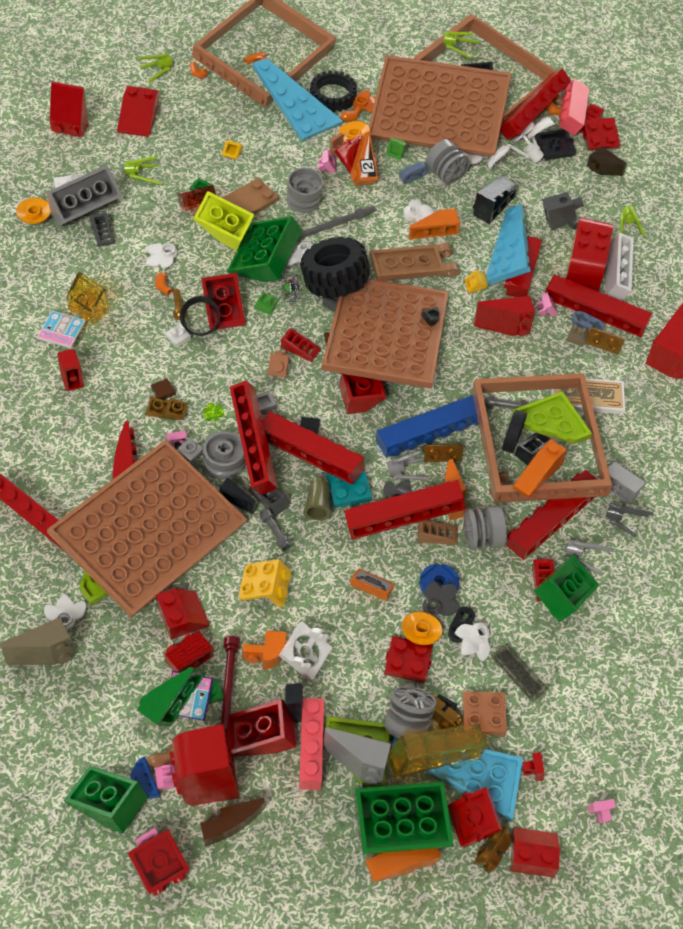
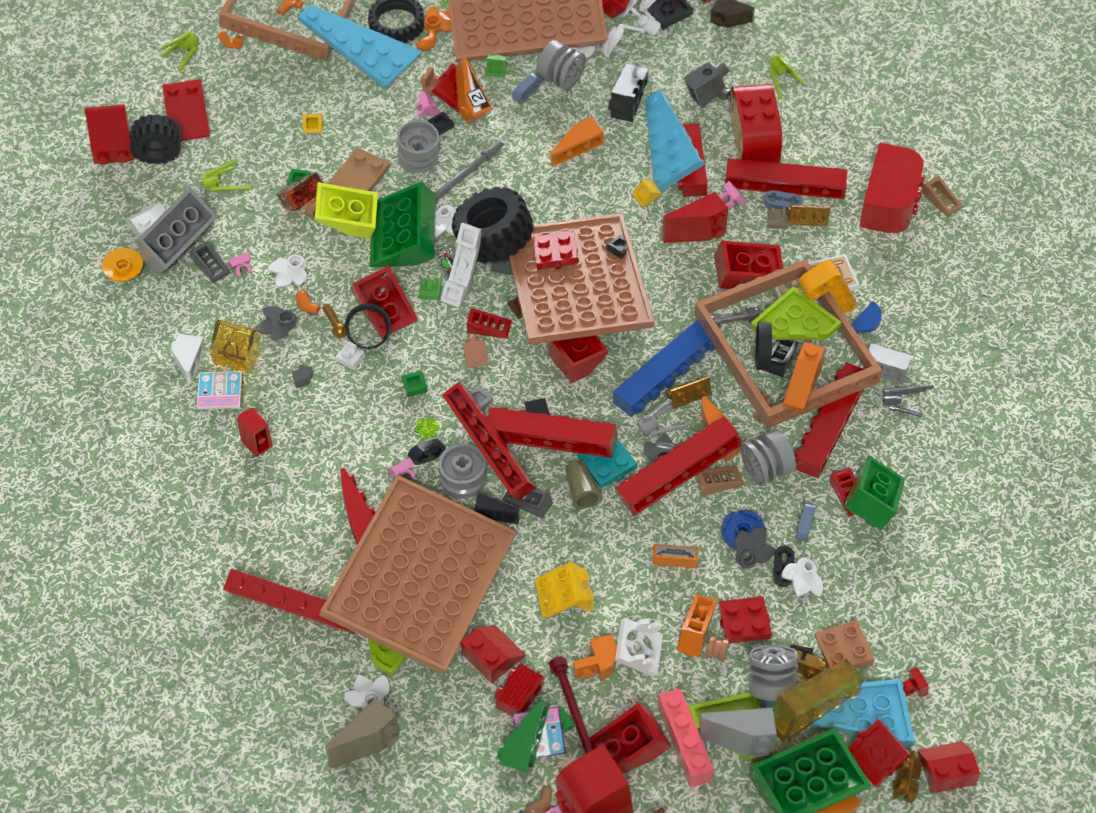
camera: 15 degrees left, 0 degrees up
(50, 293) = (187, 354): none -> white slope
(101, 124) = (155, 139): none -> black tyre
(124, 235) = (240, 261): none -> bright pink tile
(131, 293) = (274, 322): none -> dark grey plate
(132, 339) = (302, 376): none -> dark grey piece
(163, 389) = (361, 421): reddish brown tile -> none
(163, 409) = (380, 440): pearl gold slope -> none
(190, 451) = (426, 477): light grey bracket -> none
(201, 429) = (426, 451): none -> black beam
(218, 373) = (414, 384): none -> green plate
(282, 542) = (564, 542): flat silver bar -> none
(294, 700) = (654, 699): black slope -> none
(298, 291) = (463, 265): none -> white slope
(333, 179) = (441, 122): none -> black tile
(353, 129) = (440, 59): light orange dish -> none
(363, 650) = (696, 626): none -> orange slope
(373, 675) = (717, 648): none -> nougat wheel
(378, 301) = (555, 249): none -> plate
(406, 262) = (563, 193): medium nougat hinge -> none
(416, 211) = (549, 132): white plate -> none
(421, 628) = (746, 583): light orange dish -> none
(496, 593) = (806, 522): none -> sand blue beam
(519, 672) = (861, 595): clear smoke tile -> none
(533, 359) = (744, 262): none -> red slope
(577, 548) = (868, 447): light grey plant -> none
(593, 392) = (824, 279): none -> light orange beam
(602, 809) = (997, 702): bright pink tile -> none
(619, 267) = (795, 132): white brick -> none
(621, 442) = (869, 319): none -> blue tile

